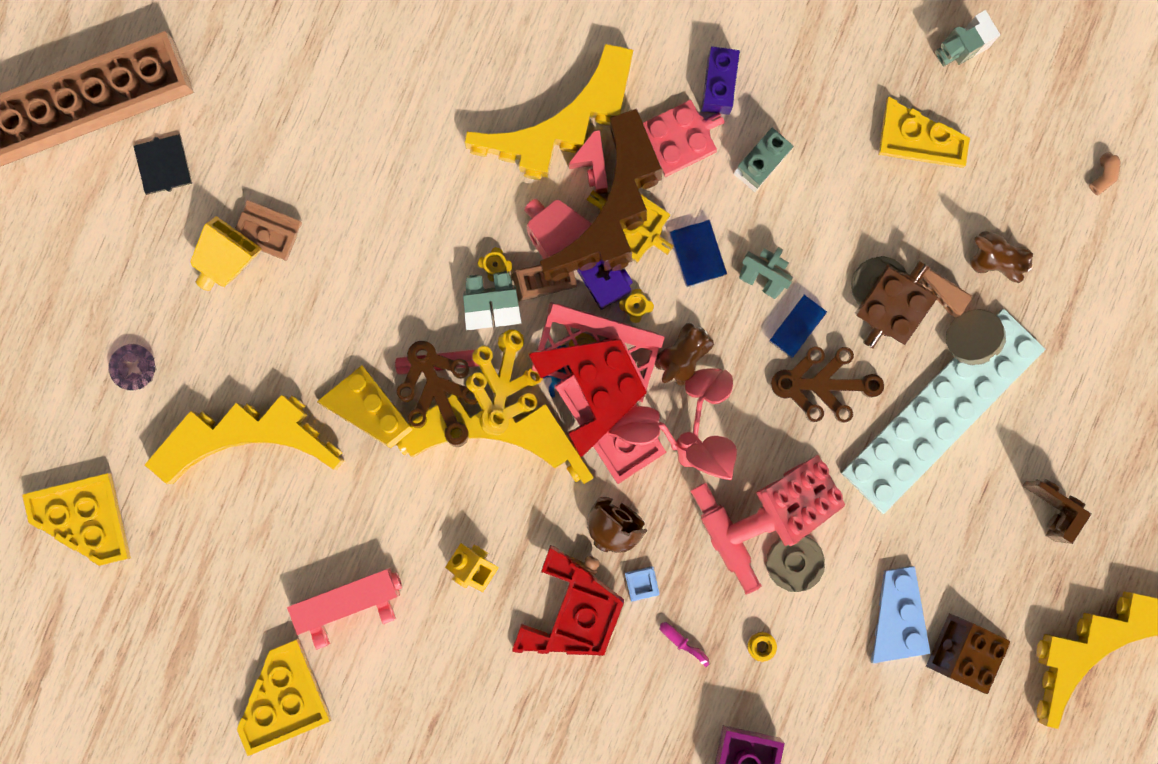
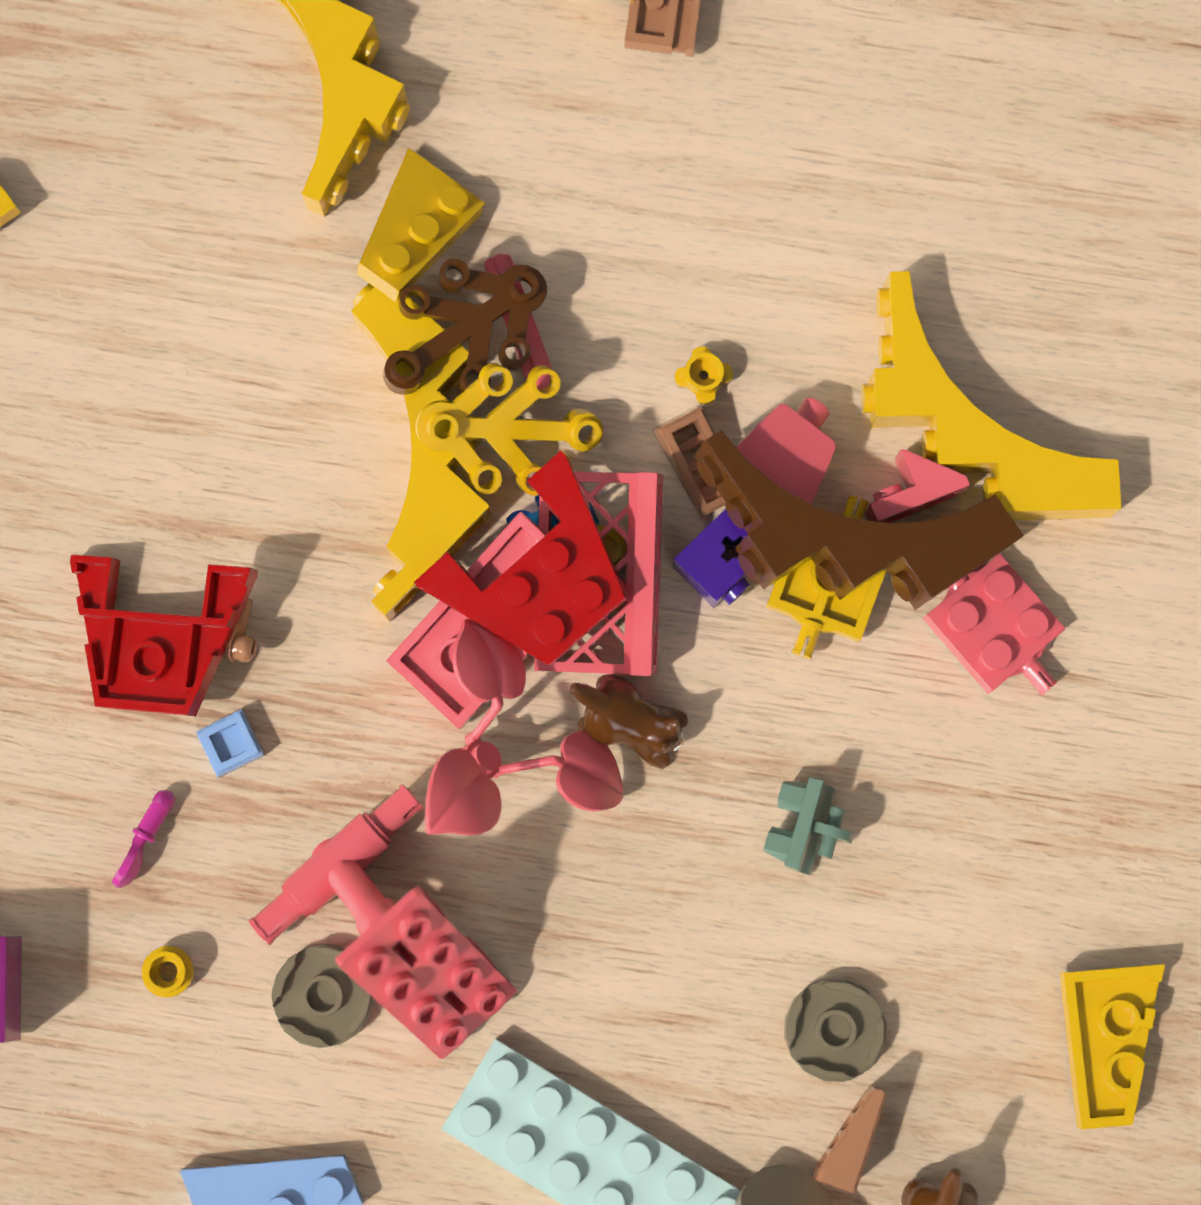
camera: 80 degrees right, 5 degrees down
(344, 601) = (93, 266): coral brick -> none
(471, 567) = (193, 453): yellow brick -> none
(503, 298) = (632, 383): sand green hips -> none
(614, 527) = (313, 670): reddish brown cylinder -> none
(644, 305) = (690, 608): yellow plate -> none
(698, 253) = (808, 704): clear blue plate -> none
(720, 80) = (1111, 668): dark purple brick -> none
(763, 159) = (998, 772): sand green hips -> none
(797, 326) = (727, 902): clear blue plate -> none
(822, 385) = (638, 968): reddish brown plant -> none
(896, 304) = (806, 1062): reddish brown plate -> none

